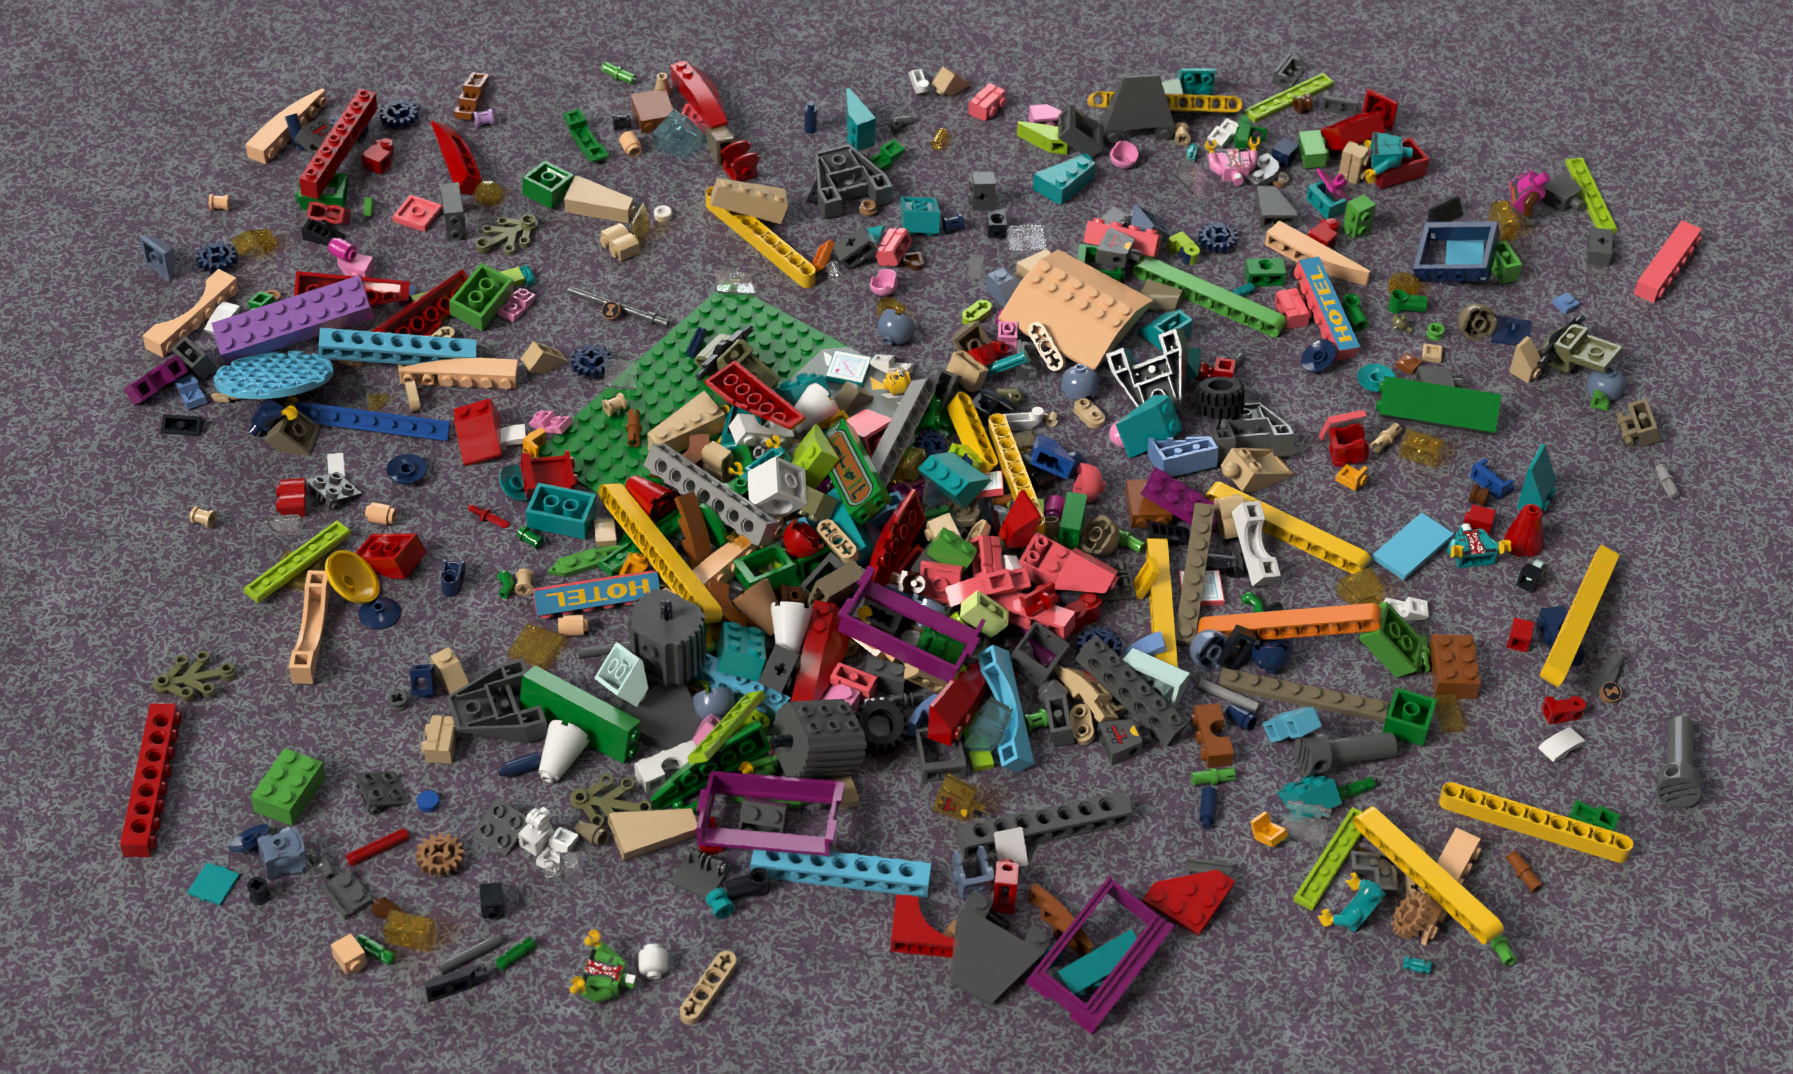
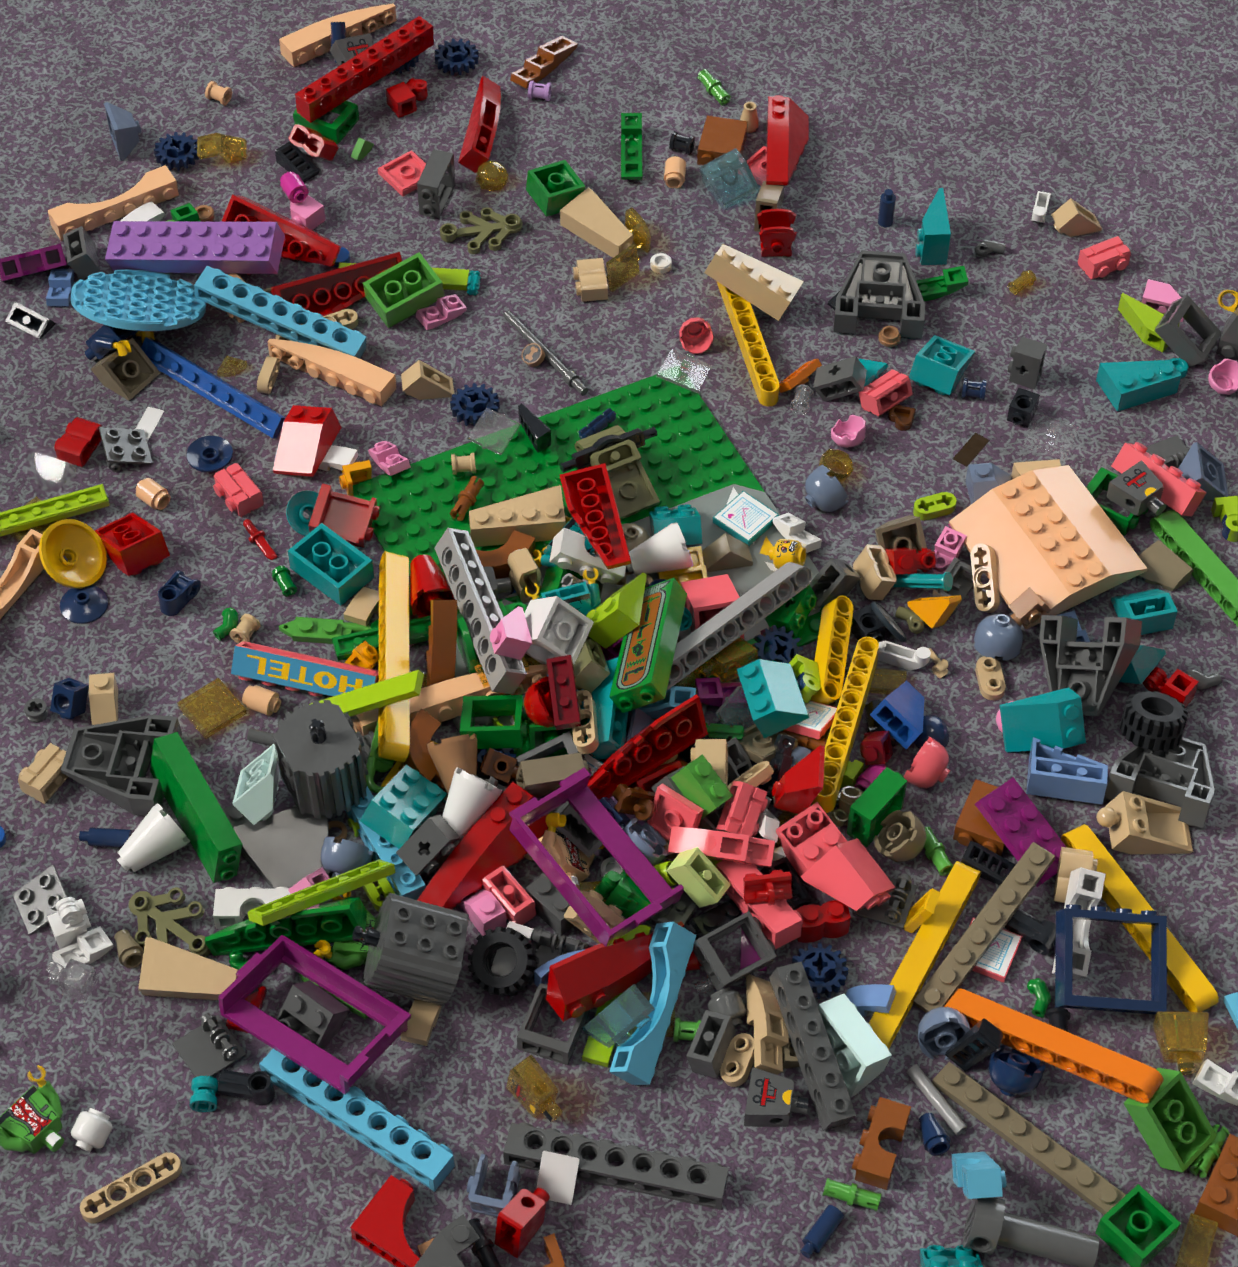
camera: 30 degrees right, 5 degrees up
(448, 486) = (238, 490): none -> coral brick
(632, 191) = (640, 230): none -> clear yellow slope
(650, 360) = (535, 429): none -> black slope
(671, 581) = (379, 694): none -> lime tile
(727, 254) = (696, 335): none -> coral hair
(755, 498) = (511, 635): none -> bright pink slope
(814, 524) = (563, 692): none -> dark red plate
(1024, 380) = (934, 610): none -> light orange slope
(1045, 485) = (876, 747): none -> dark red brick
(1092, 353) = (1027, 607): none -> brick
(1265, 570) = (1064, 961): none -> dark blue window

